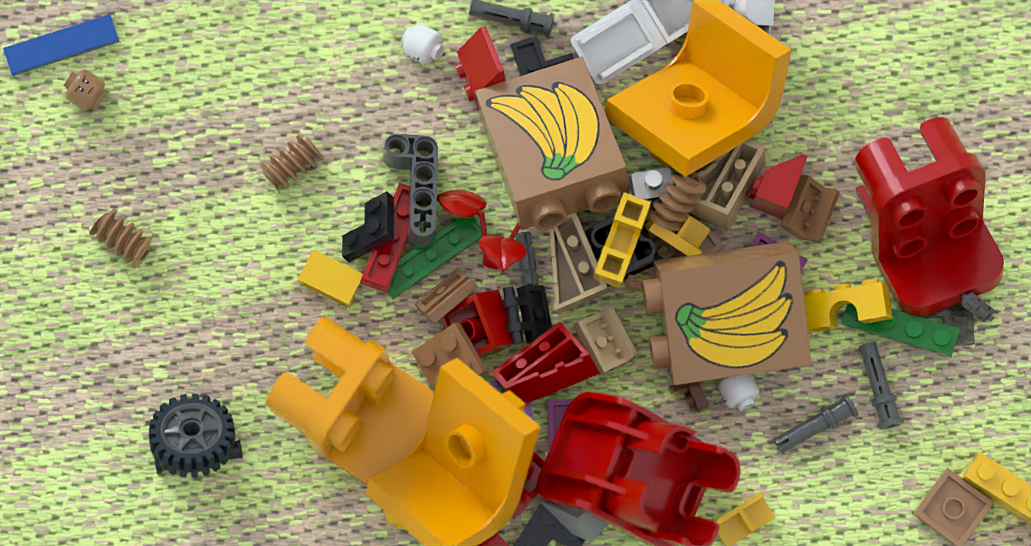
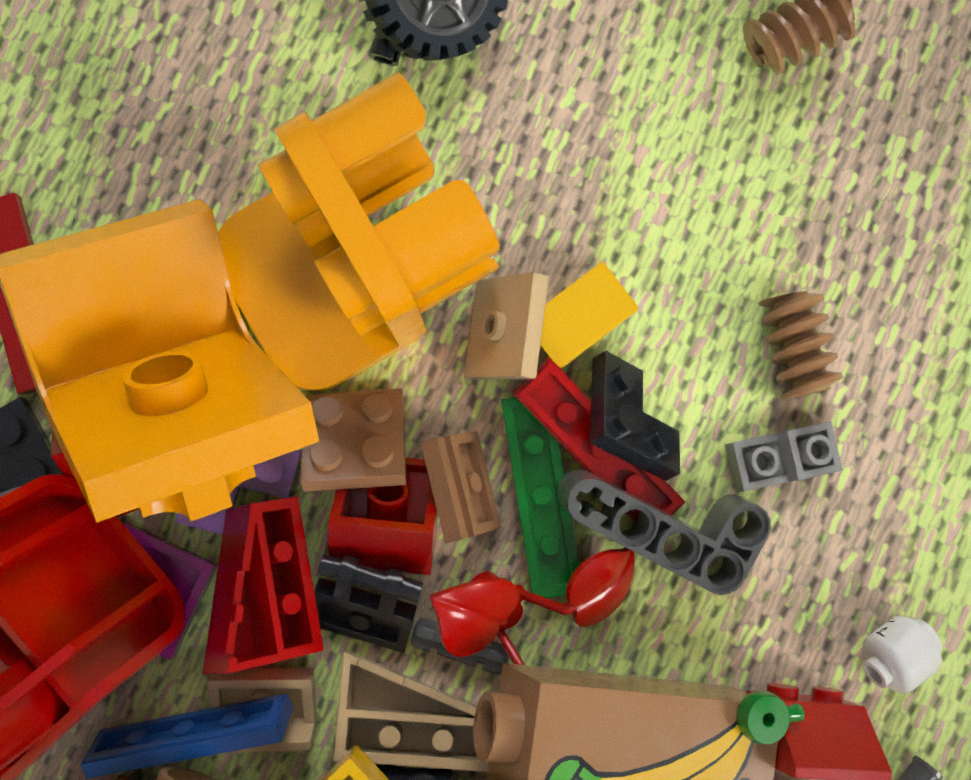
camera: 120 degrees right, 5 degrees up
(352, 145) = (783, 457): none -> light grey slope
(357, 309) = (506, 327): none -> tan plate
(483, 95) = (766, 717): none -> green piece
(635, 367) = (188, 736): none -> blue tile

